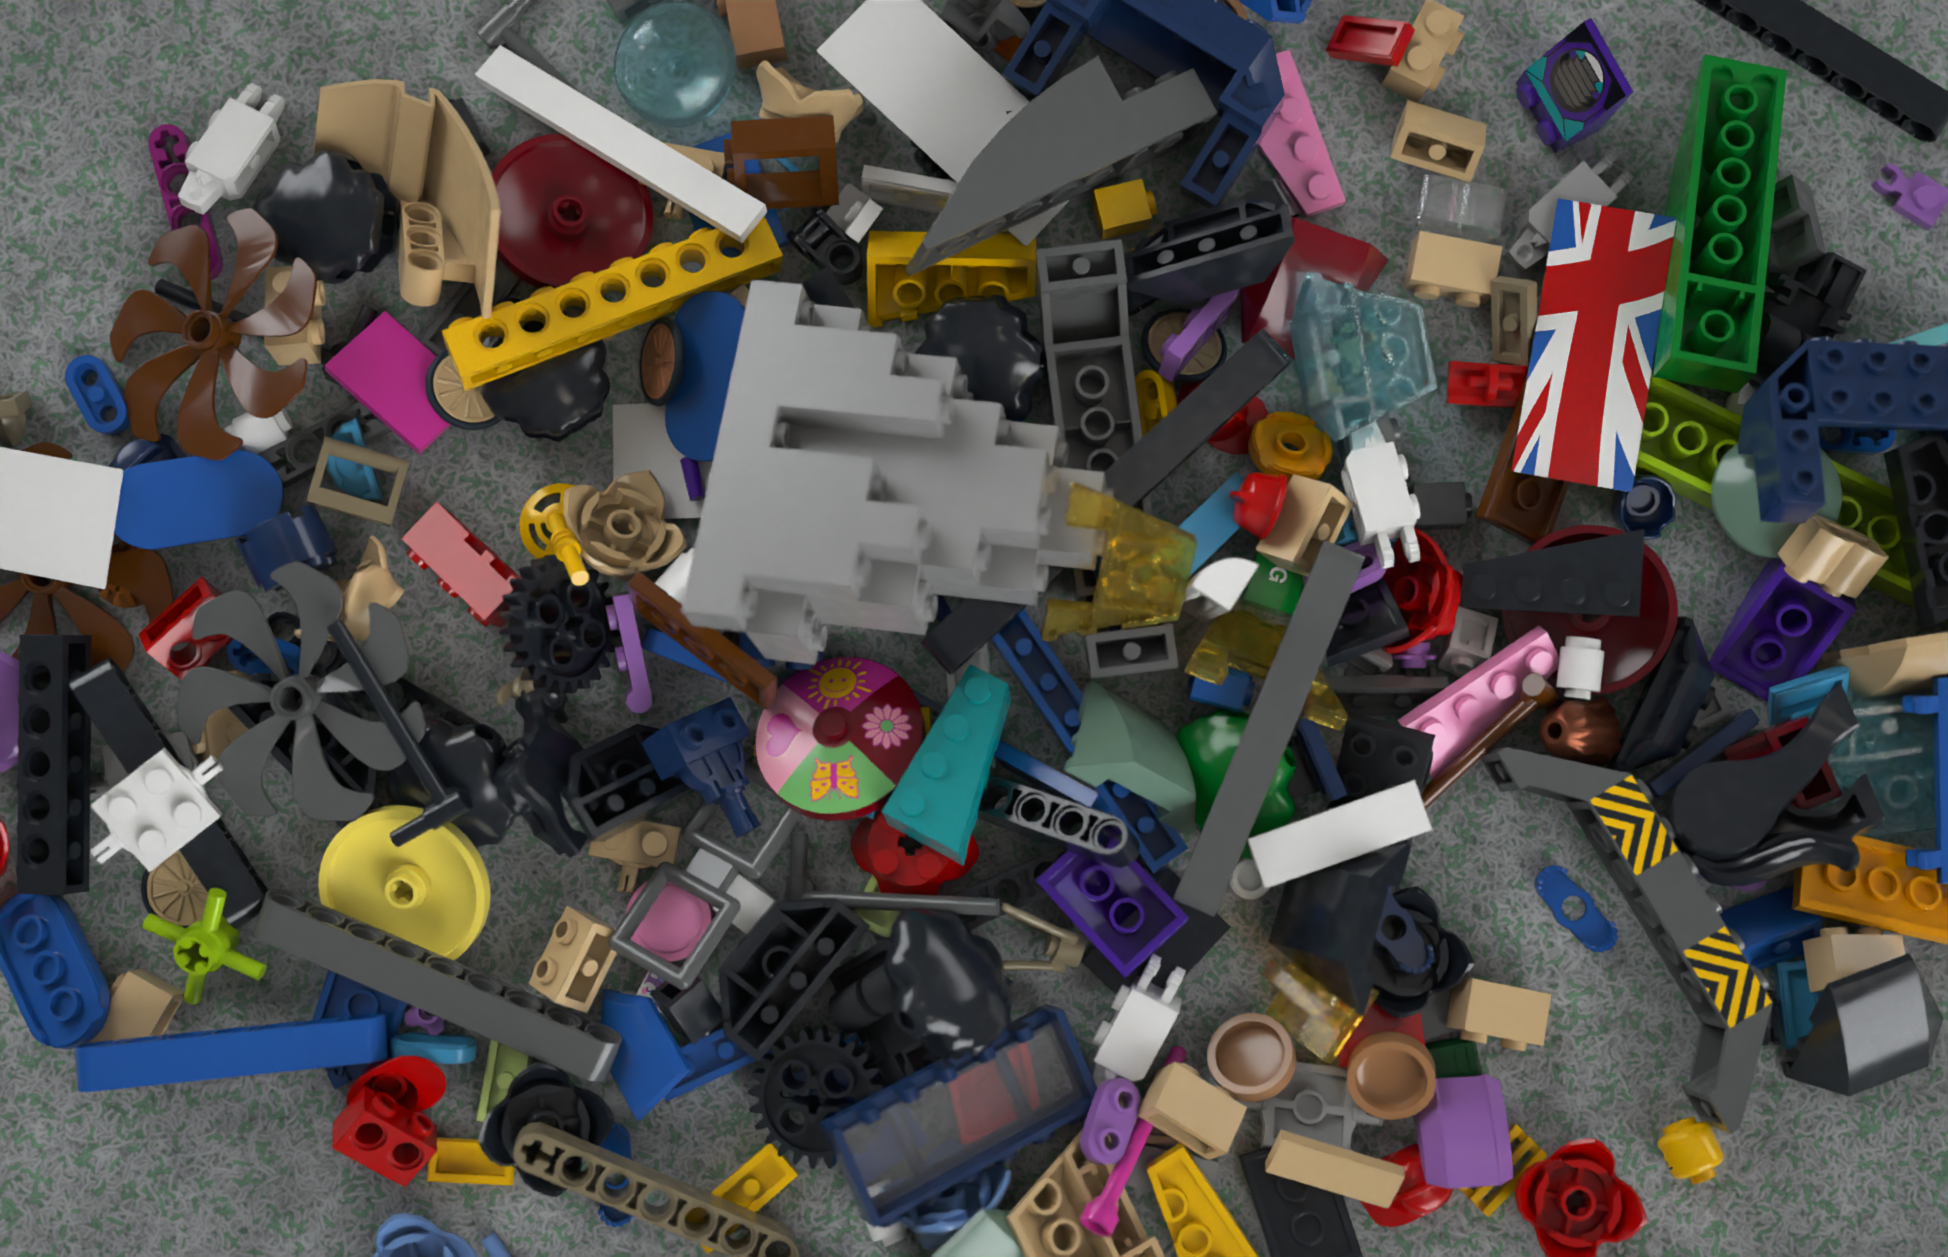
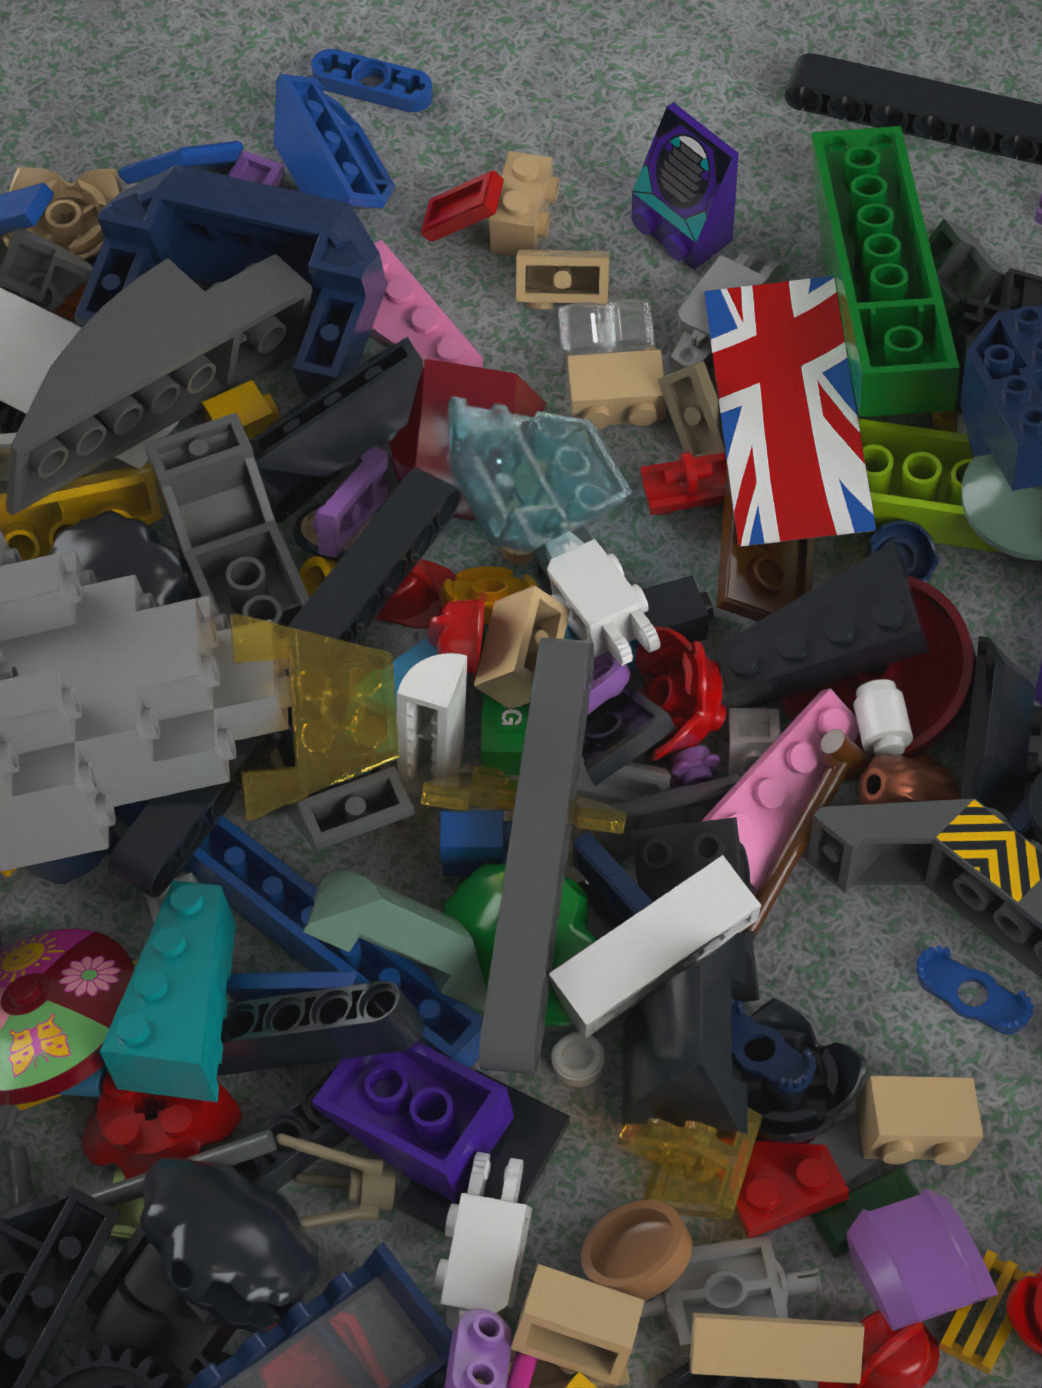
camera: 10 degrees left, 25 degrees down
(1391, 1075) = (809, 1214): medium nougat piece -> none

